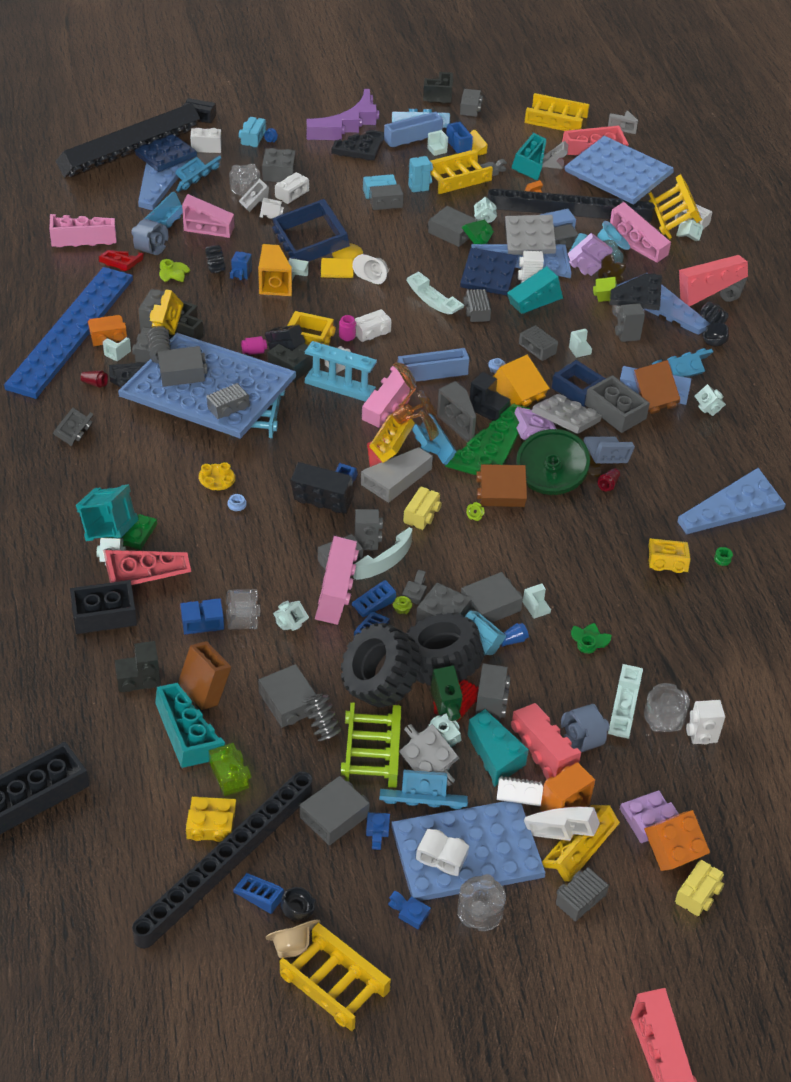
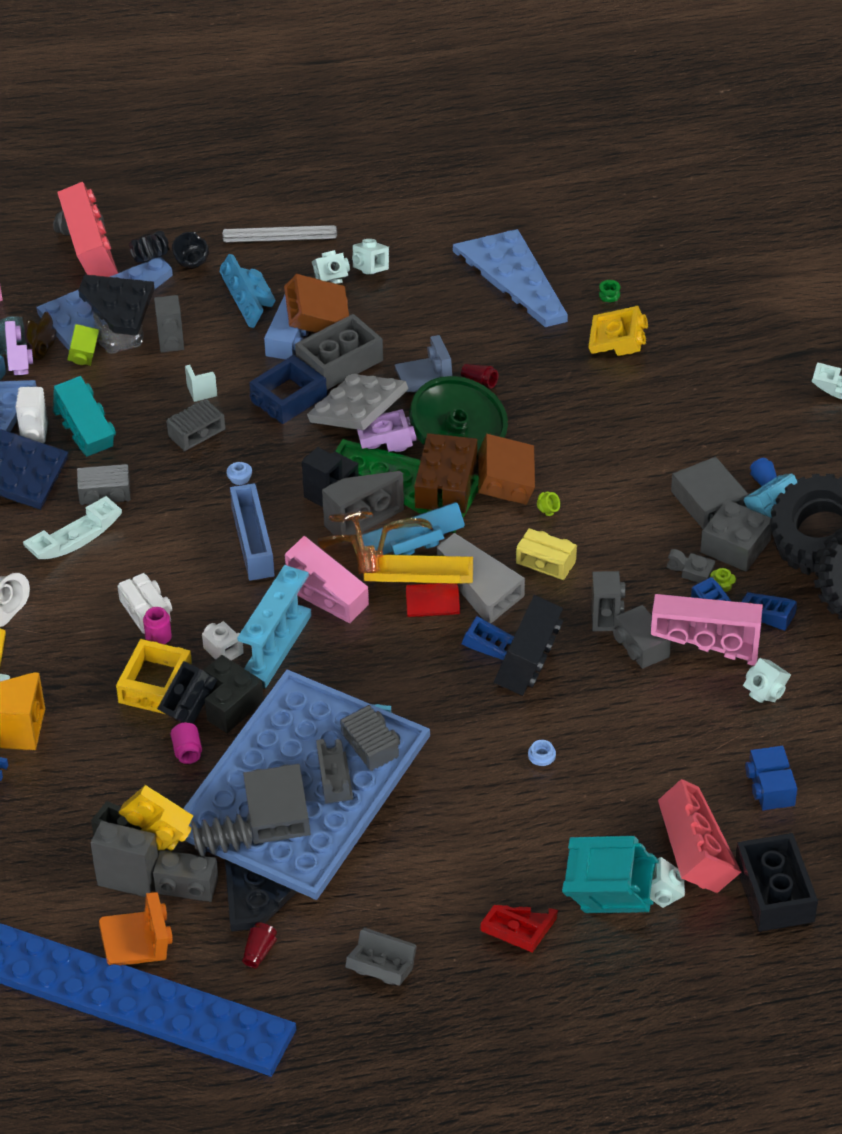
camera: 85 degrees left, 0 degrees up
(91, 479) = (518, 925): none -> red wing
(116, 350) = (184, 920): light aqua panel -> none
(201, 385) = (334, 772): none -> dark grey hinge
(216, 476) = (487, 777): yellow dish -> none
(242, 609) = (765, 724): clear brick -> none
(371, 567) = (635, 579): light aqua slope -> none
(488, 448) = (446, 465): none -> reddish brown piece
(521, 382) = (284, 442): light orange slope -> none
(535, 602) = (699, 452): light aqua panel -> none
(589, 638) = (759, 414): green plate -> none
(727, 419) = (370, 256): none -> light aqua brick
(751, 381) = (279, 233): none -> light grey axle

